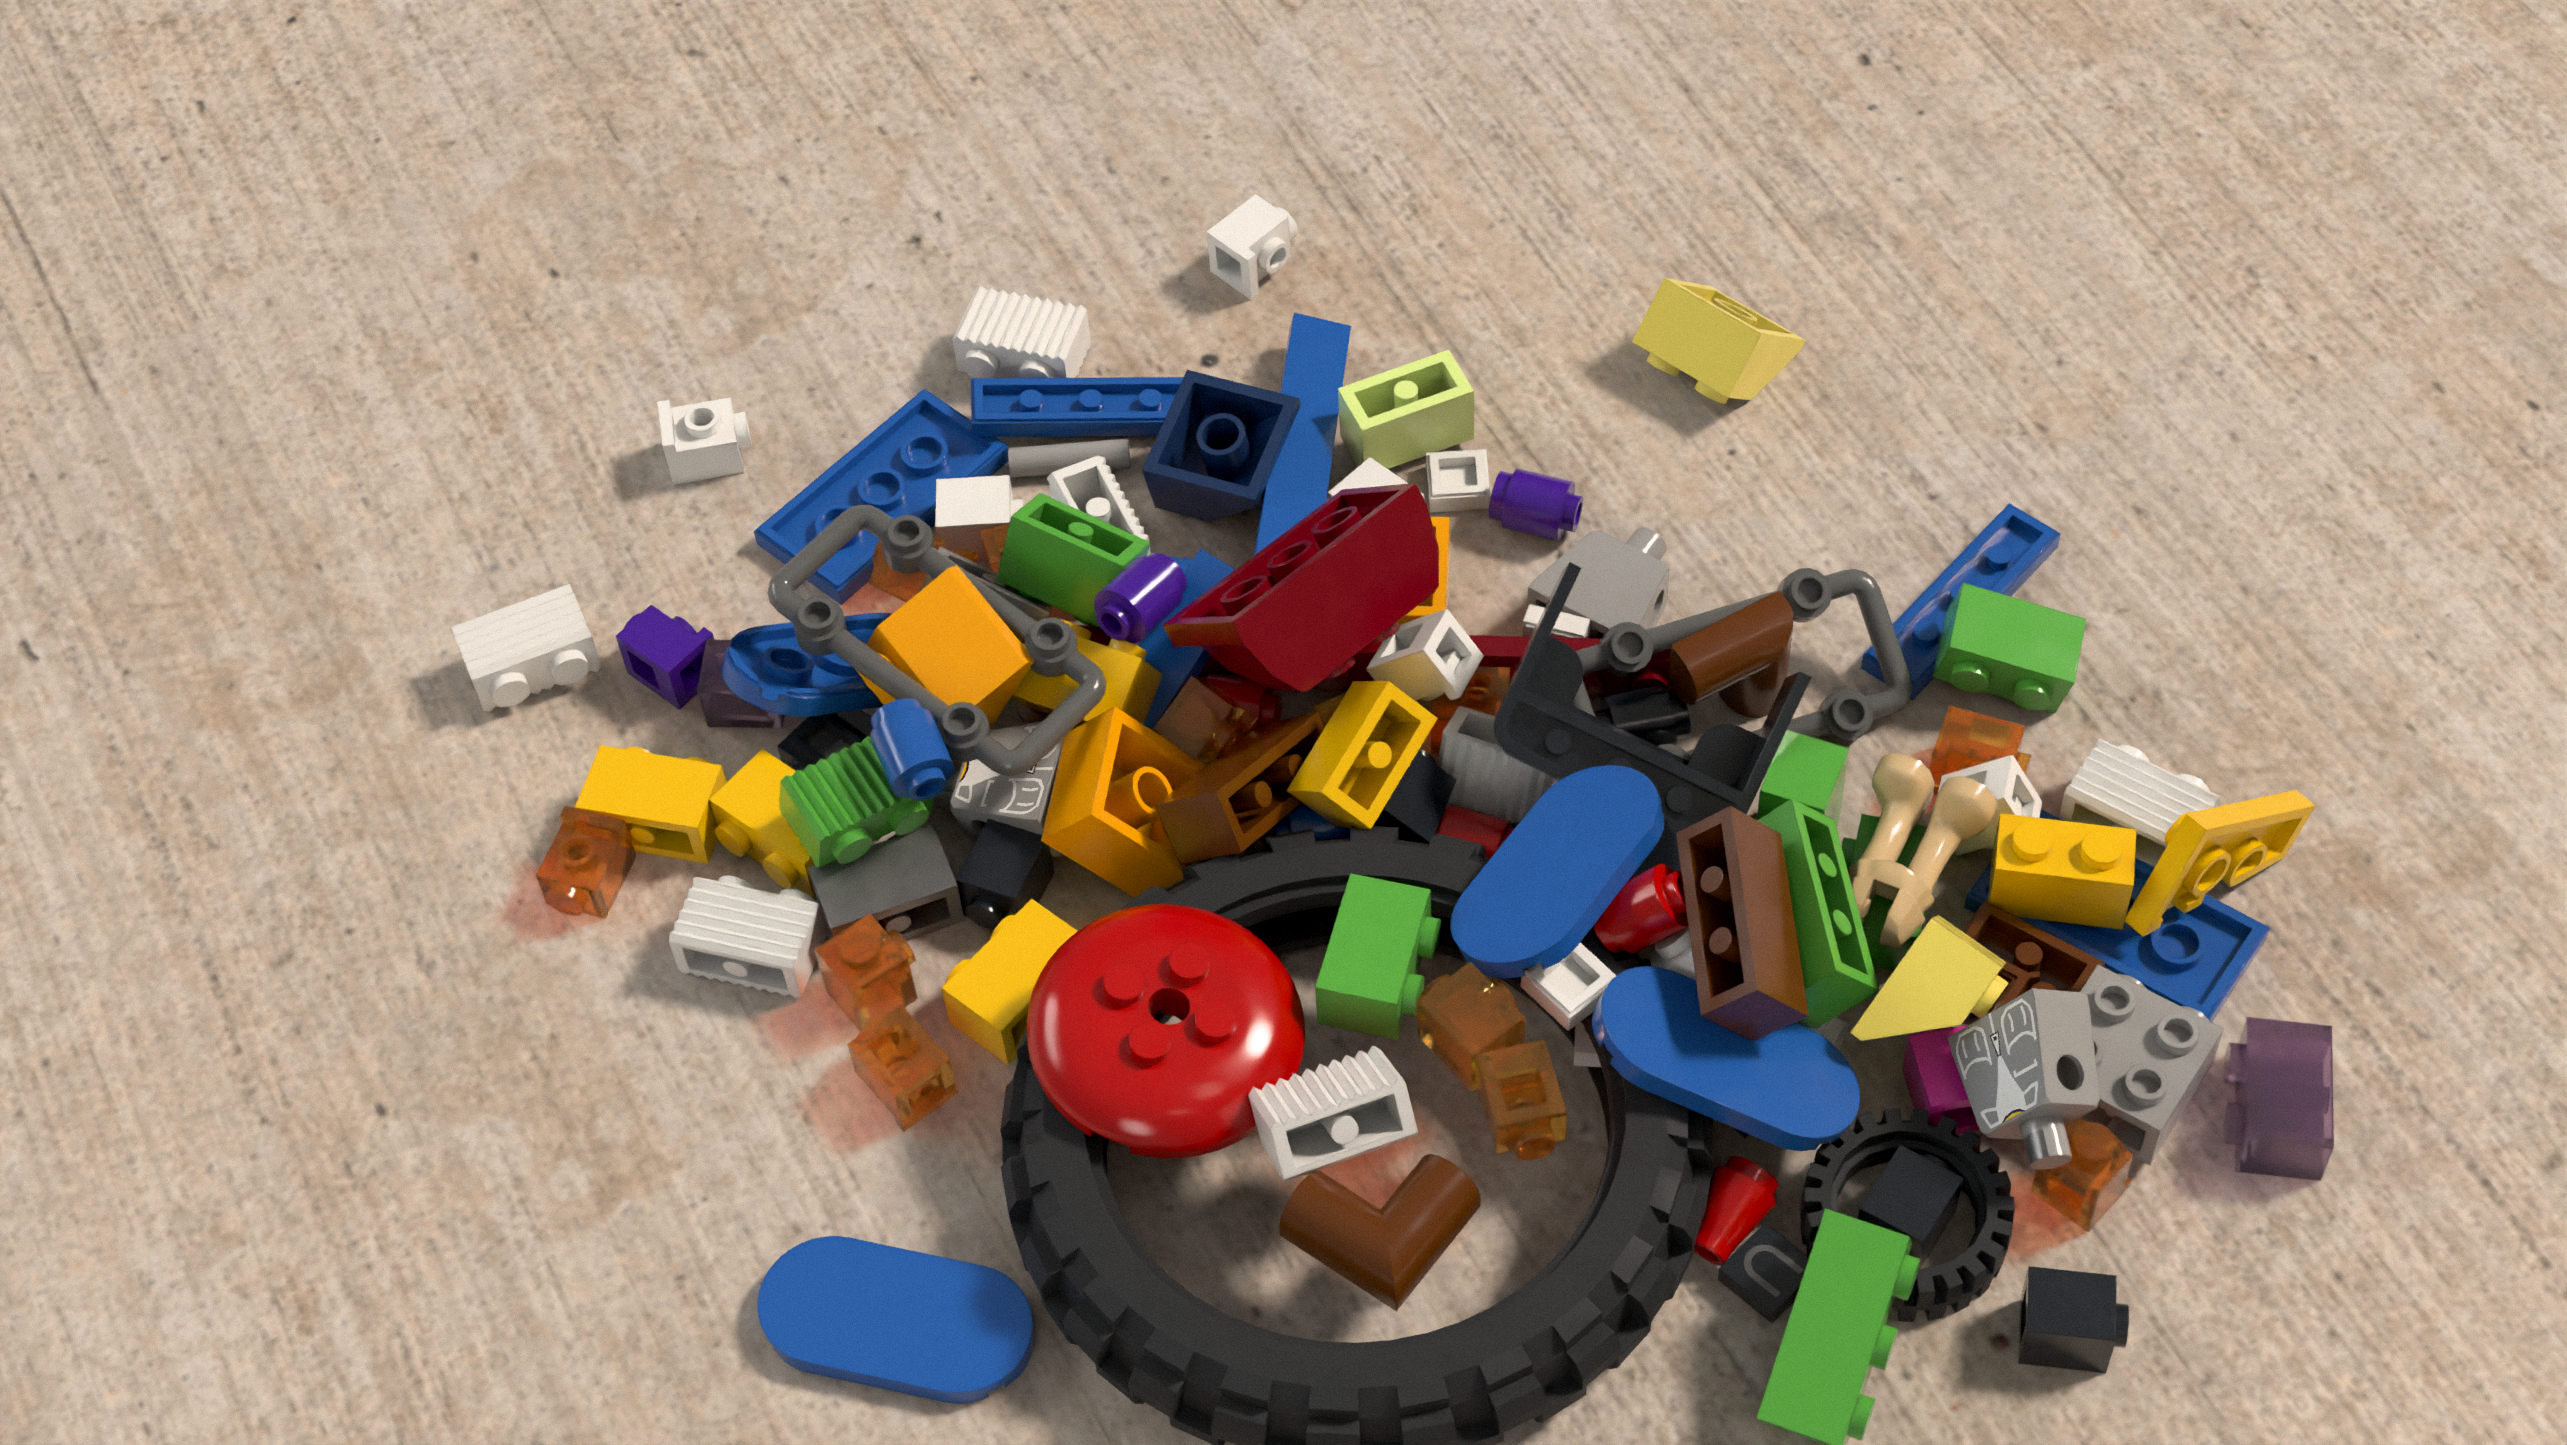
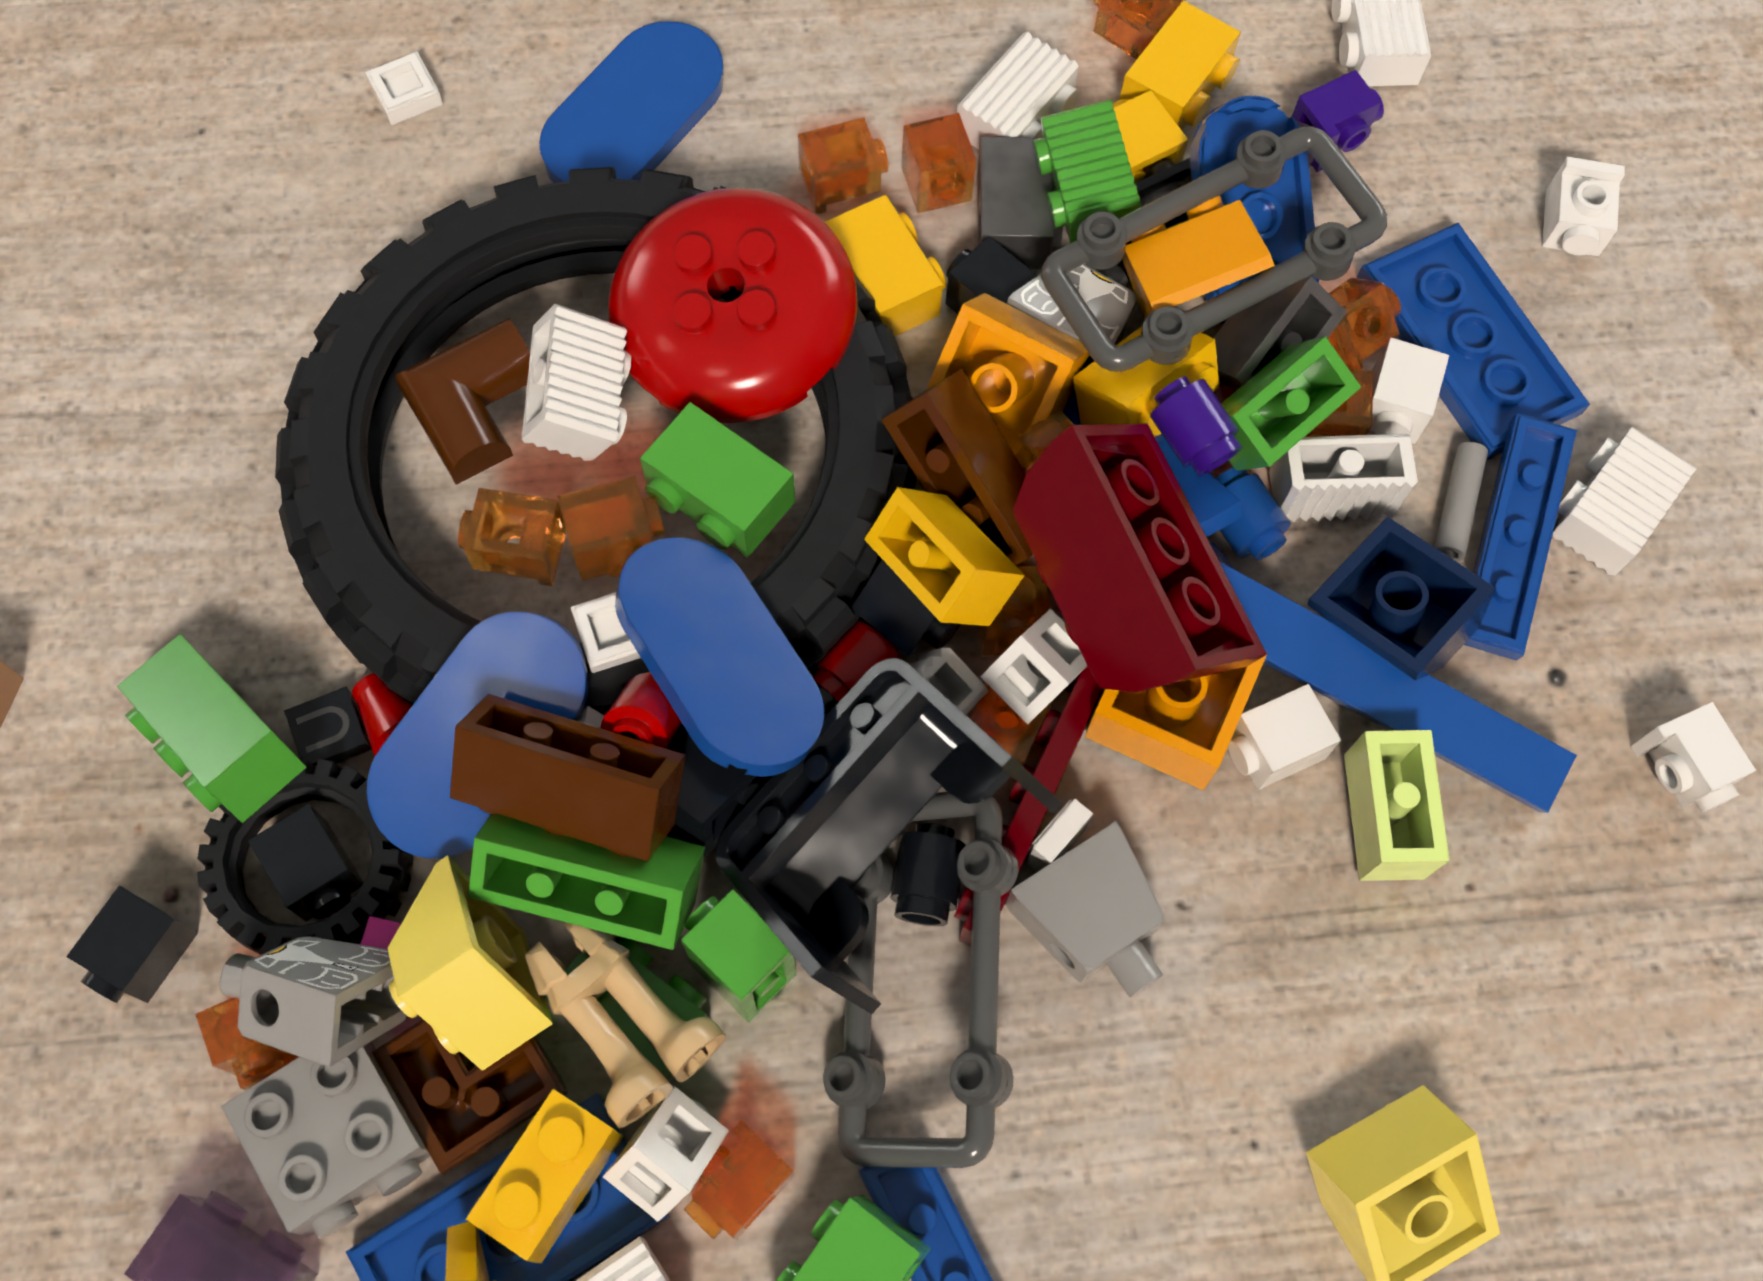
camera: 105 degrees right, 15 degrees up
(911, 749) = (1091, 187): blue brick -> none
(1458, 480) = (1308, 842): white tile -> none
(1535, 504) = (1238, 893): dark purple brick -> none
(1738, 657) = (930, 969): reddish brown brick -> none

